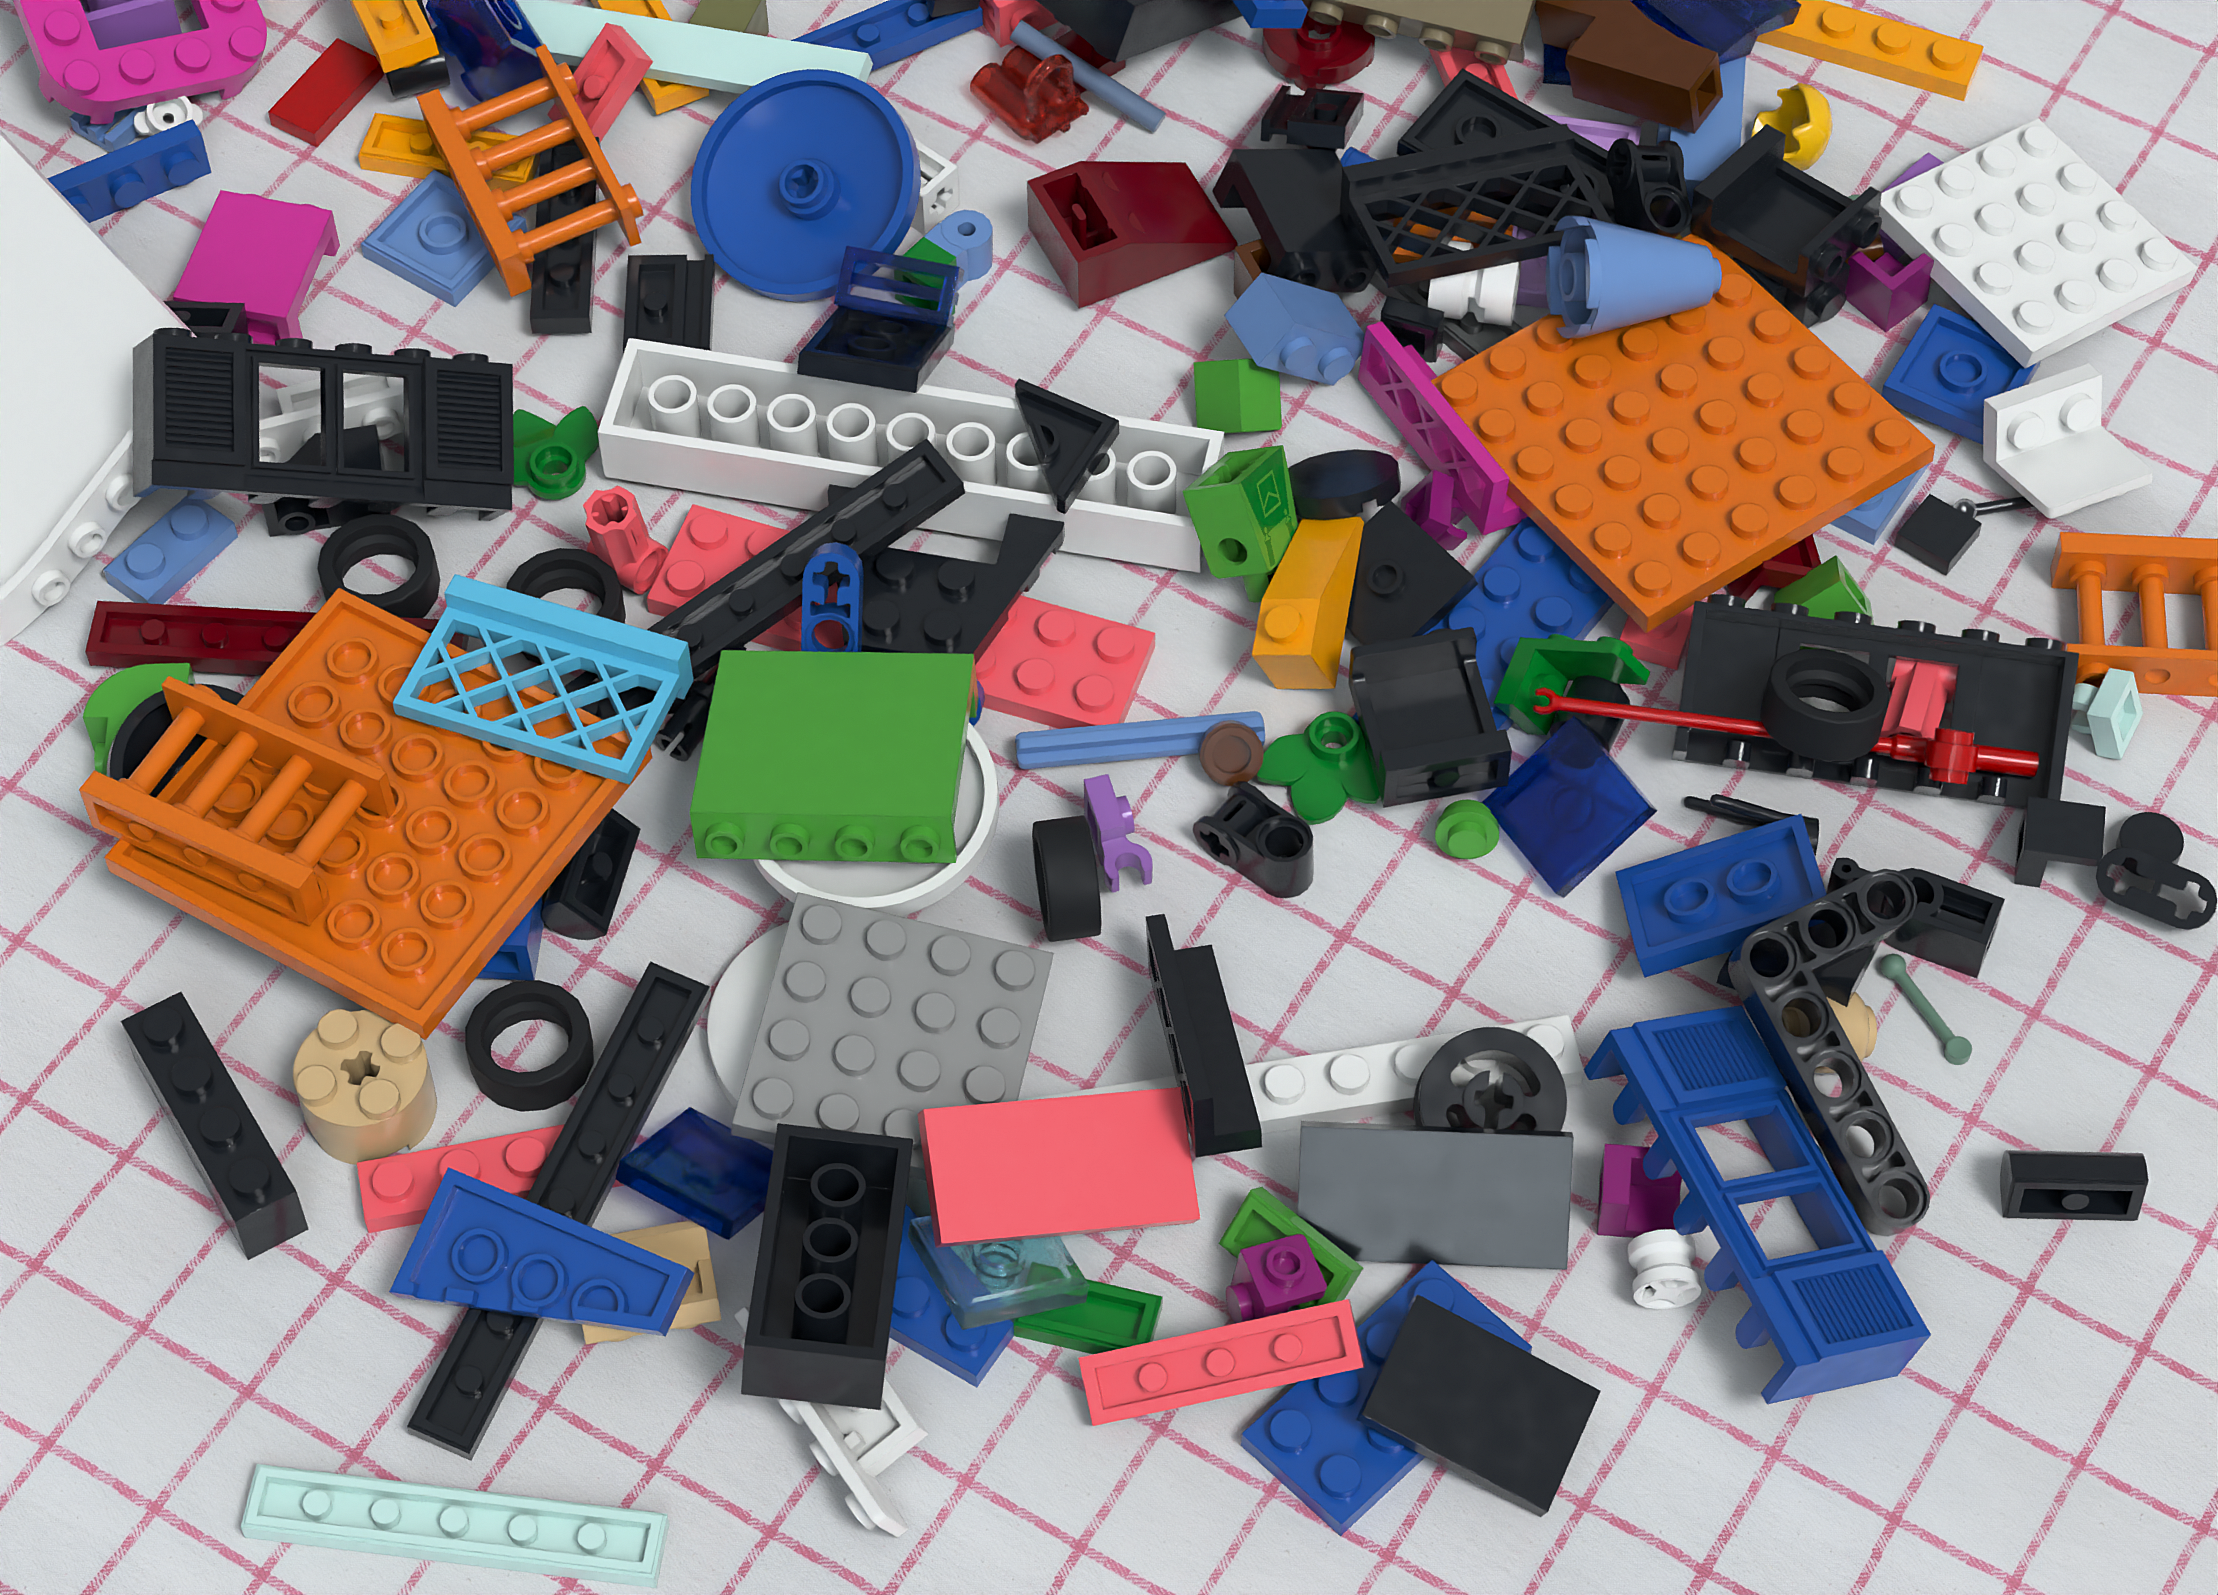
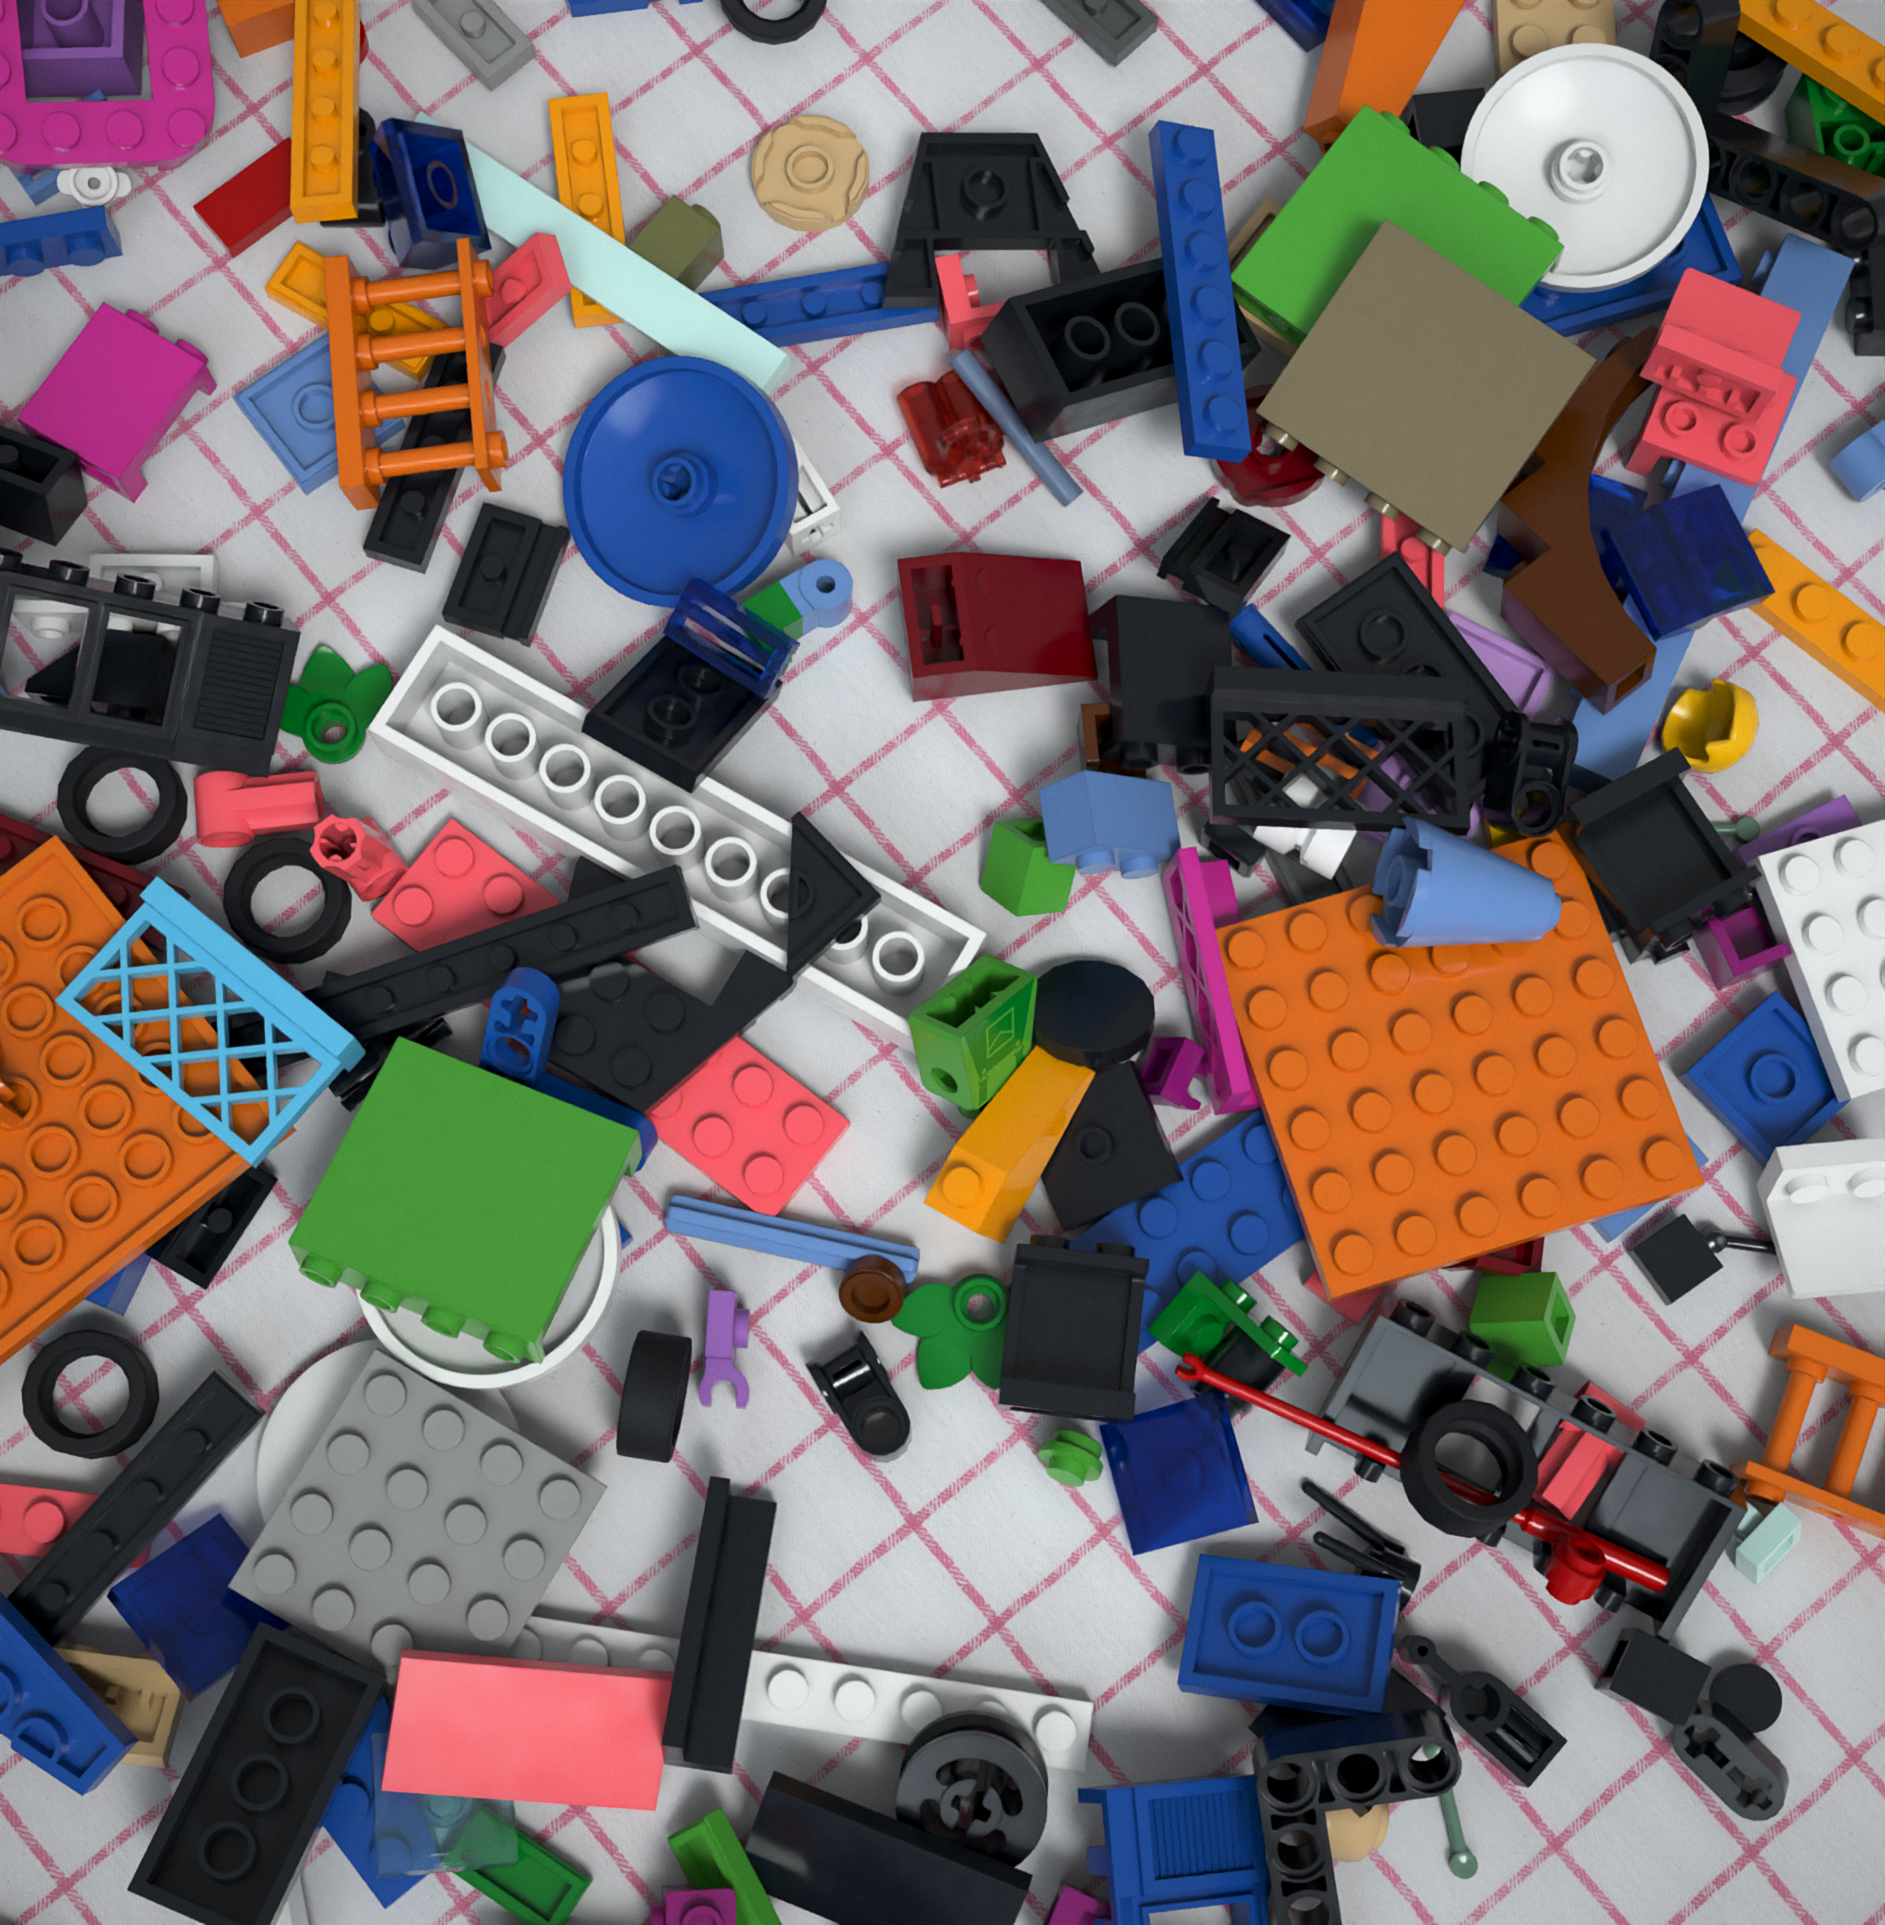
camera: 15 degrees right, 20 degrees up
(496, 547) = (238, 807): none -> coral piece

